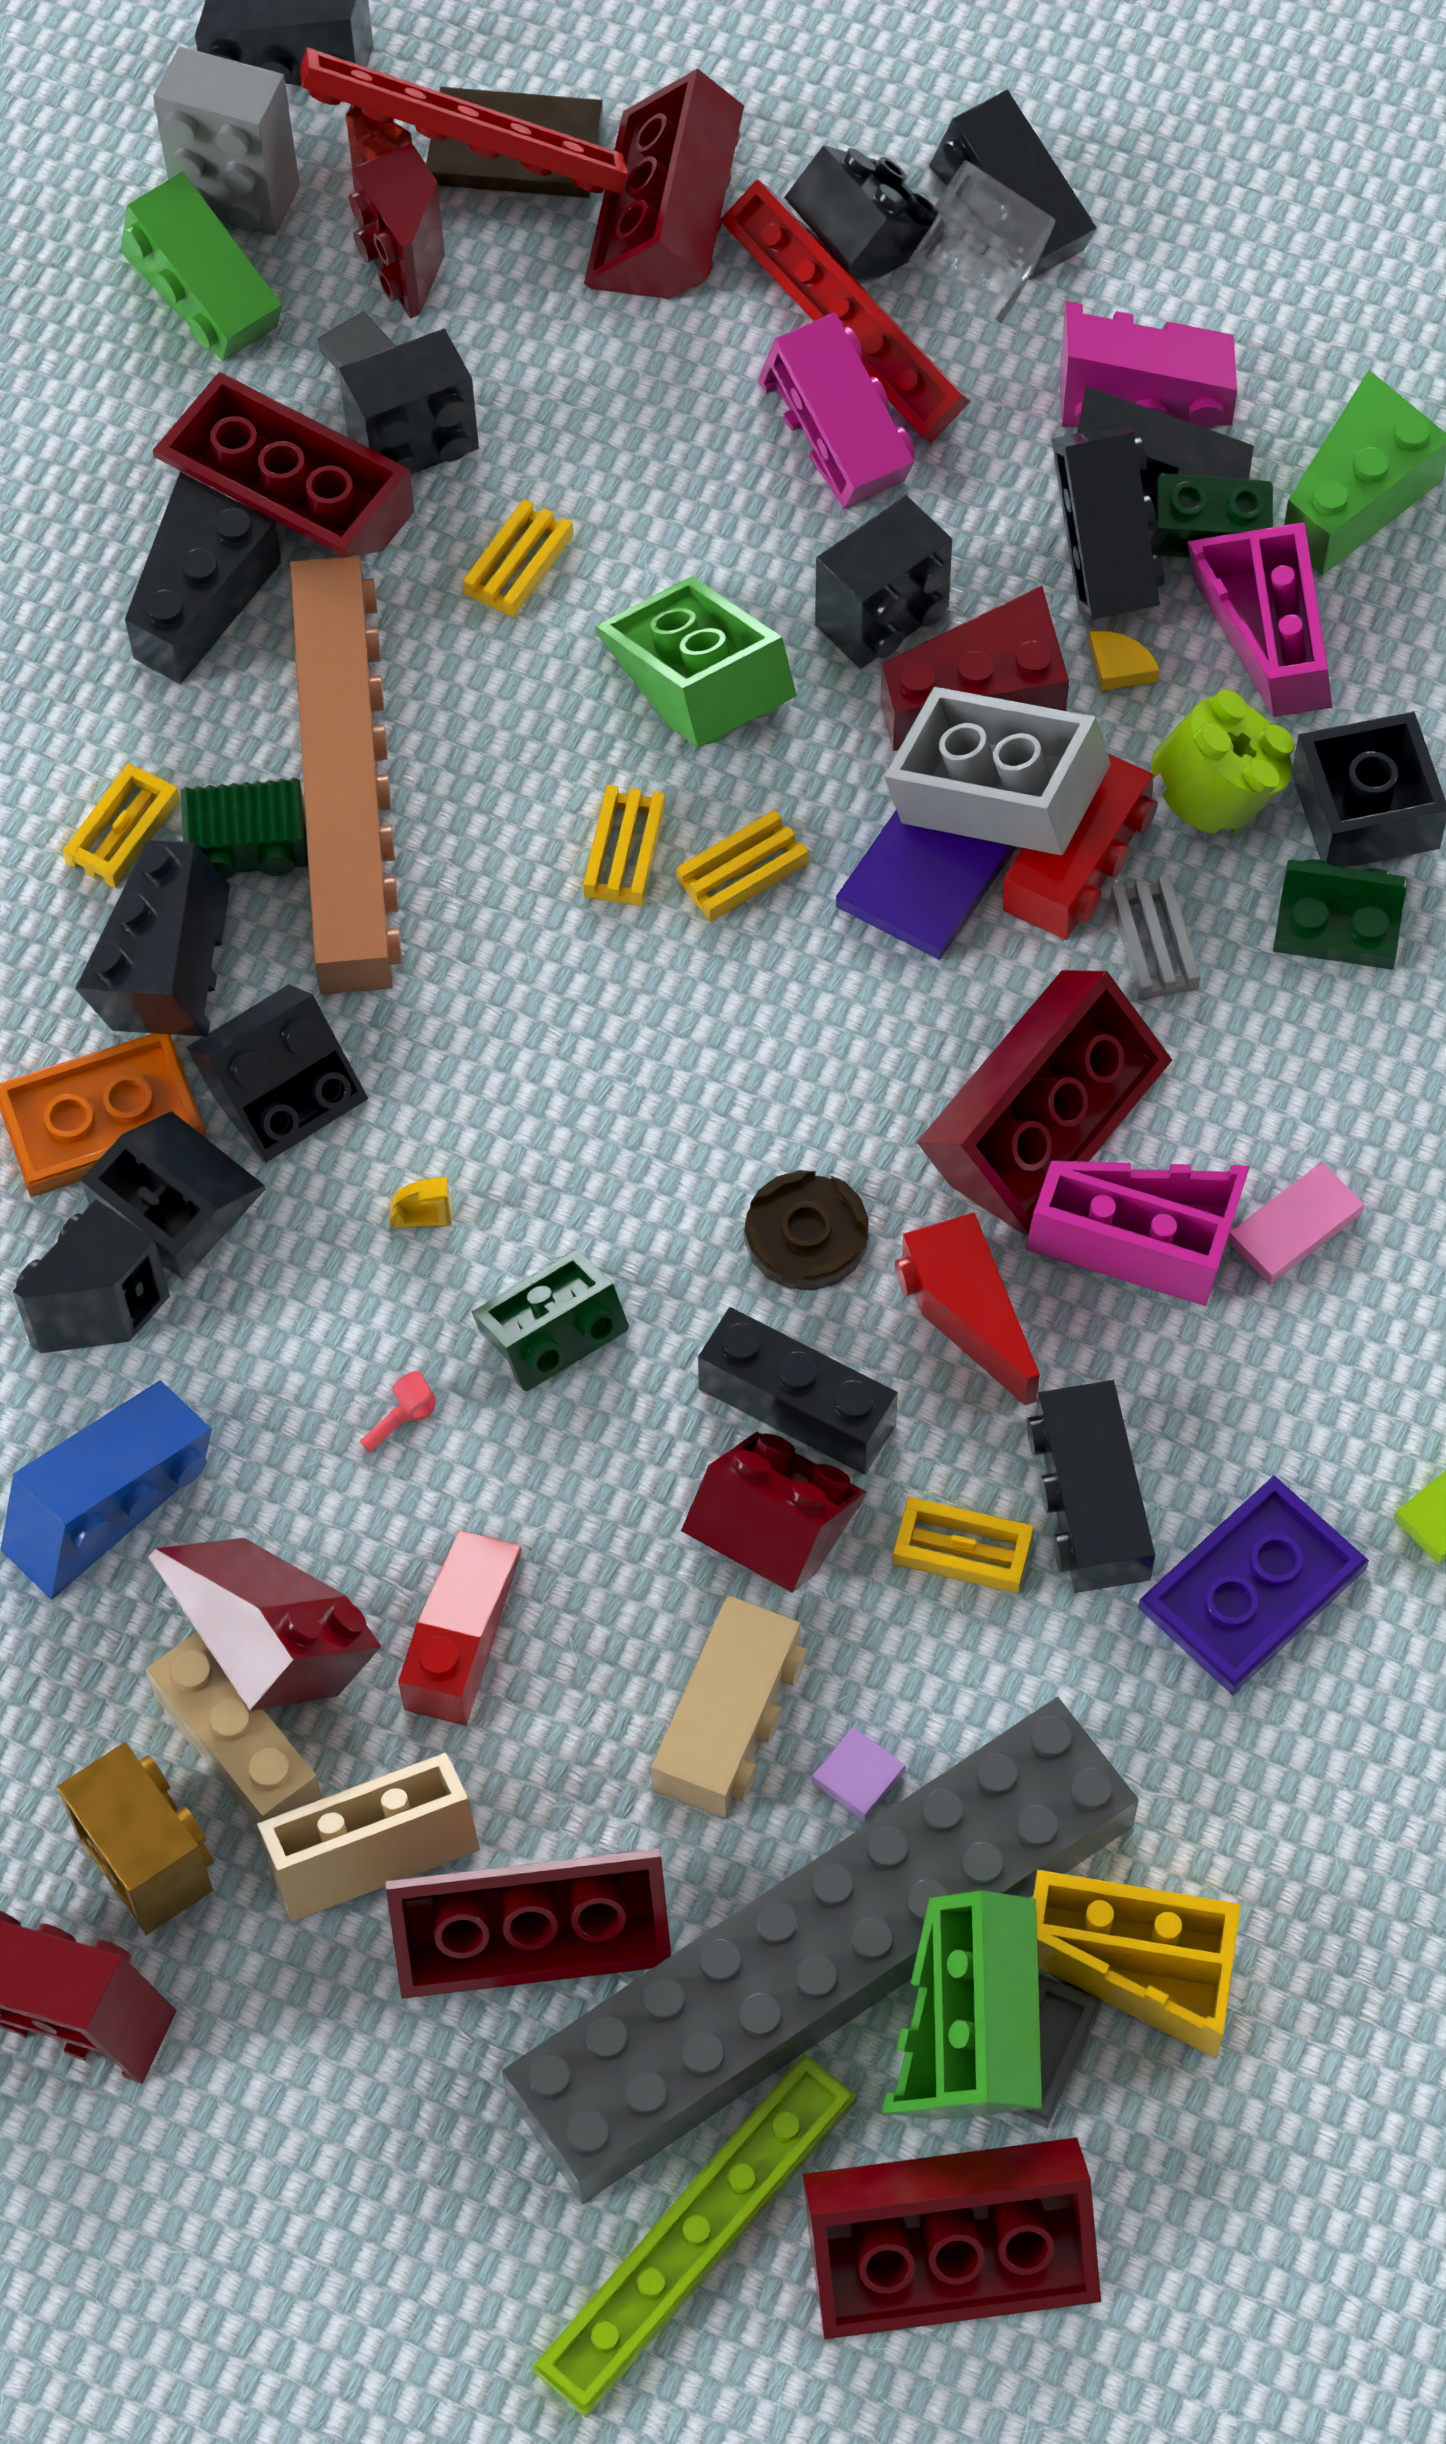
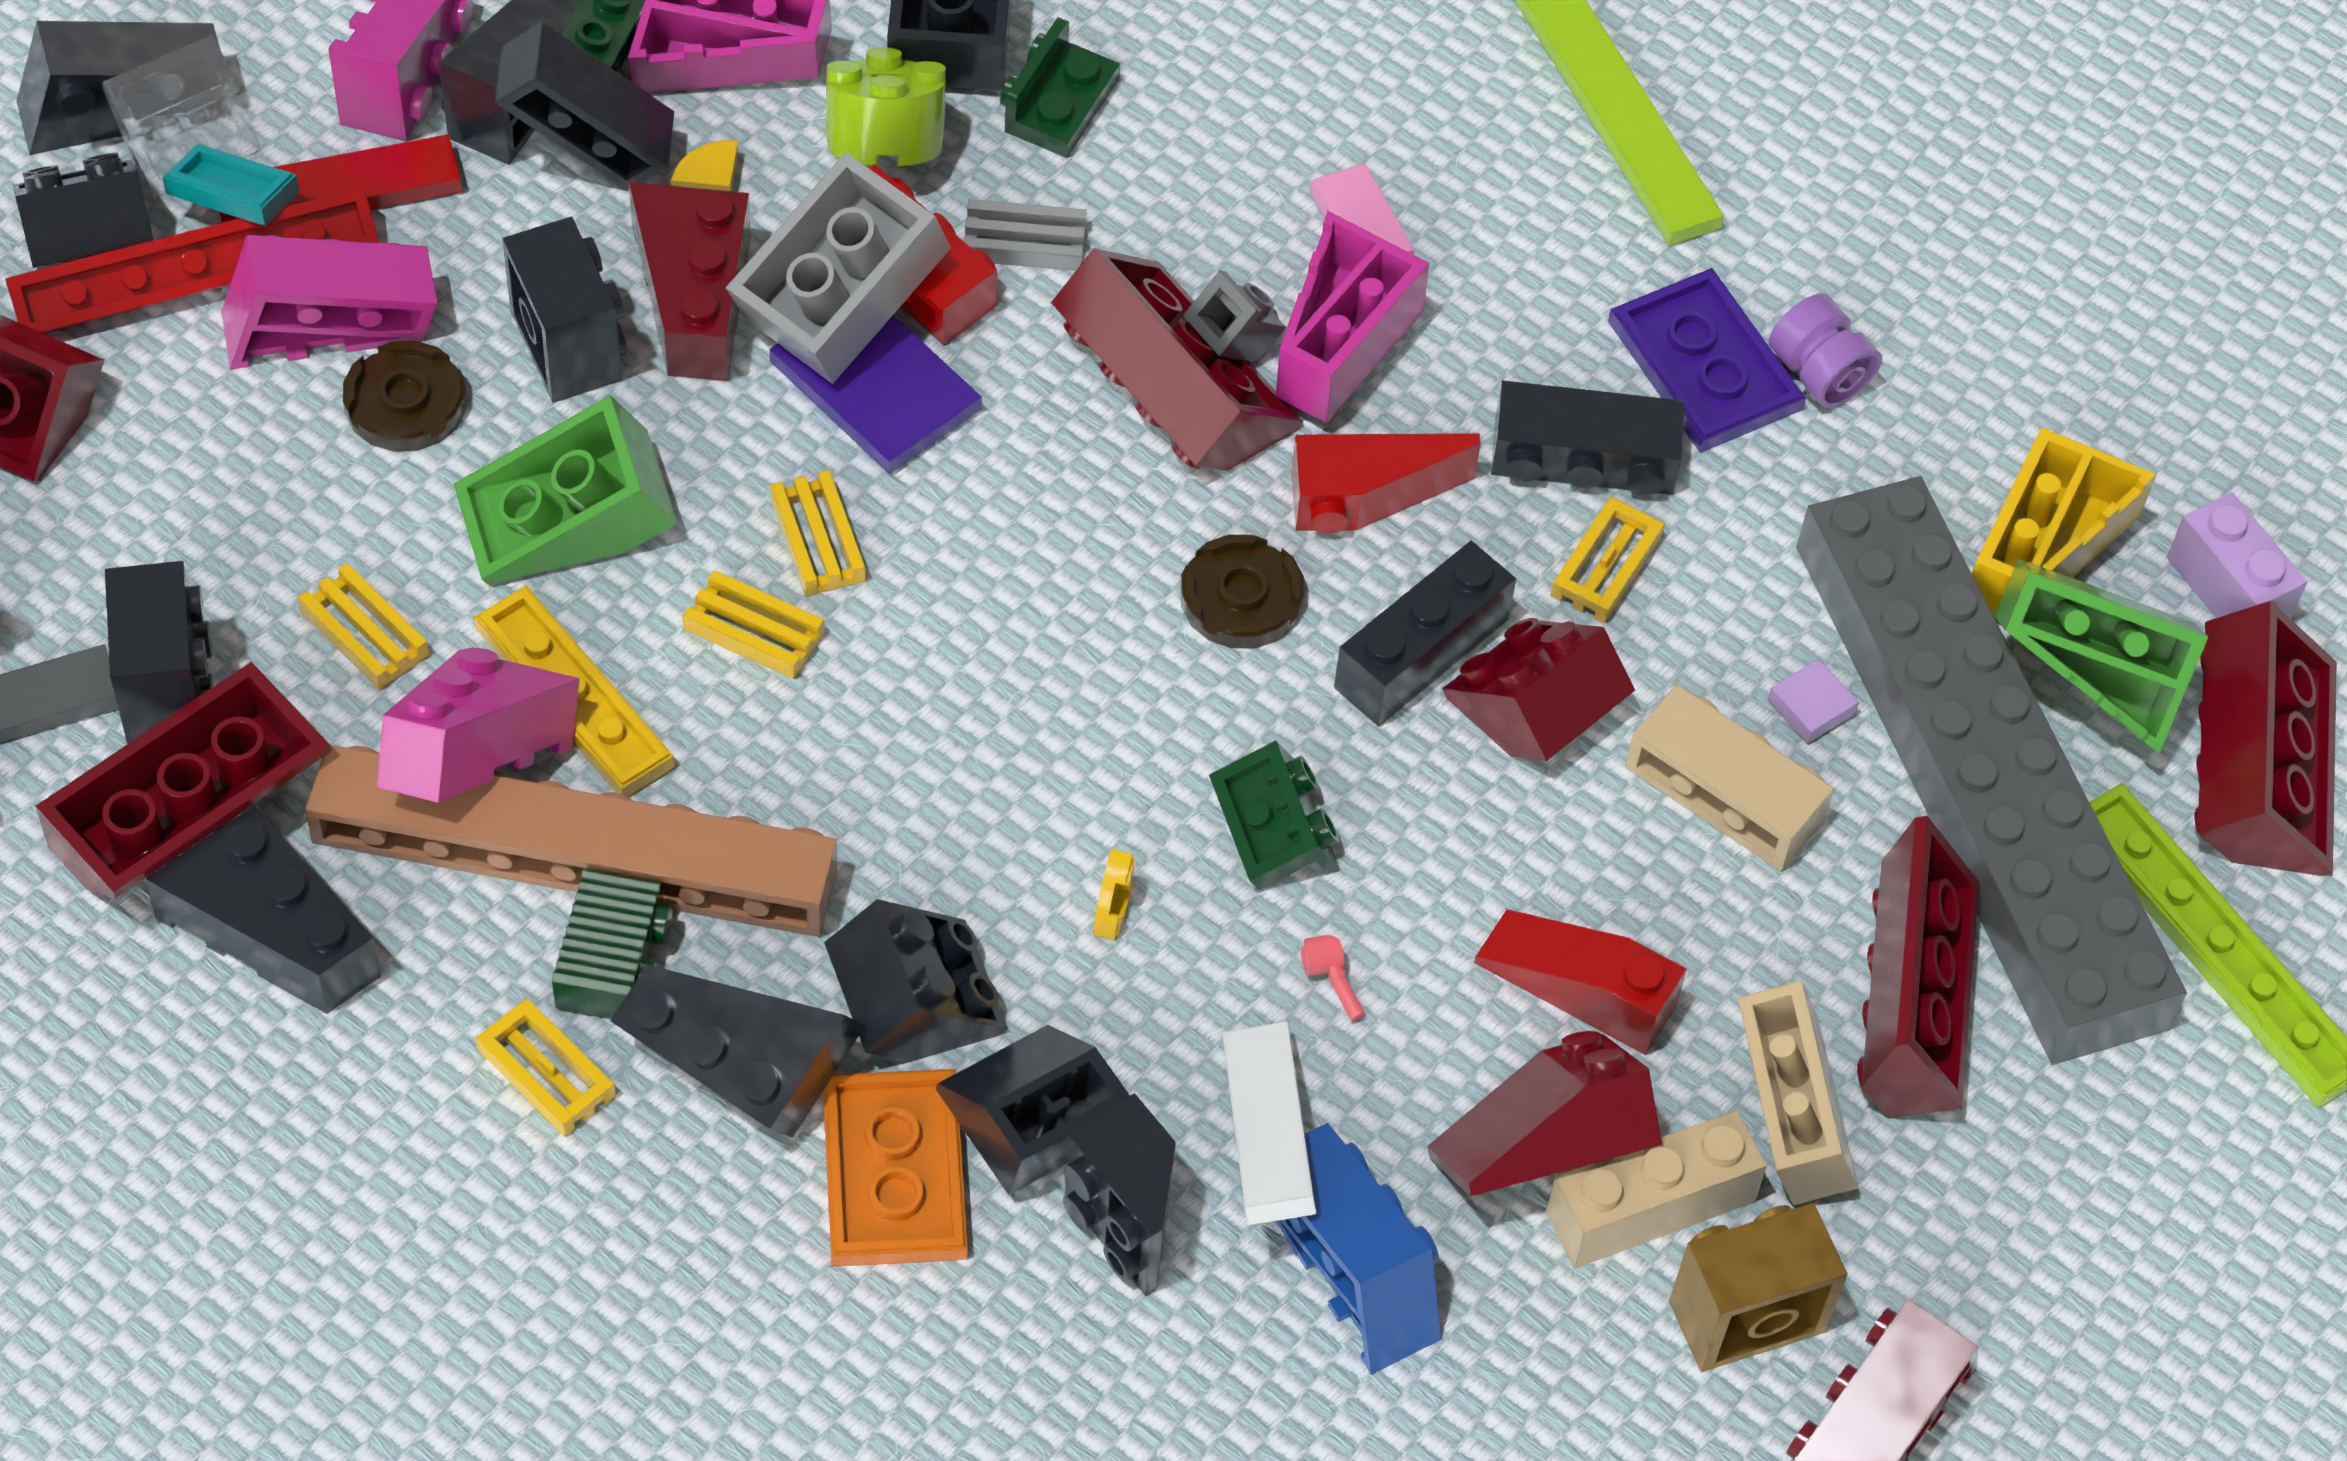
camera: 80 degrees left, 5 degrees down
(194, 1378) = (1268, 1124): none -> white tile
(402, 641) = (472, 720): none -> dark pink wedge
(505, 732) = (605, 724): none -> yellow tile
(773, 511) = (404, 396): none -> dark brown tile
(923, 300) = (231, 184): none -> teal tile
(997, 403) = (387, 173): none -> red tile
(1104, 1126) = (1235, 319): none -> dark grey brick
(1164, 2161) = (2233, 560): none -> lavender brick
(1285, 1693) = (1820, 345): none -> medium lavender wheel

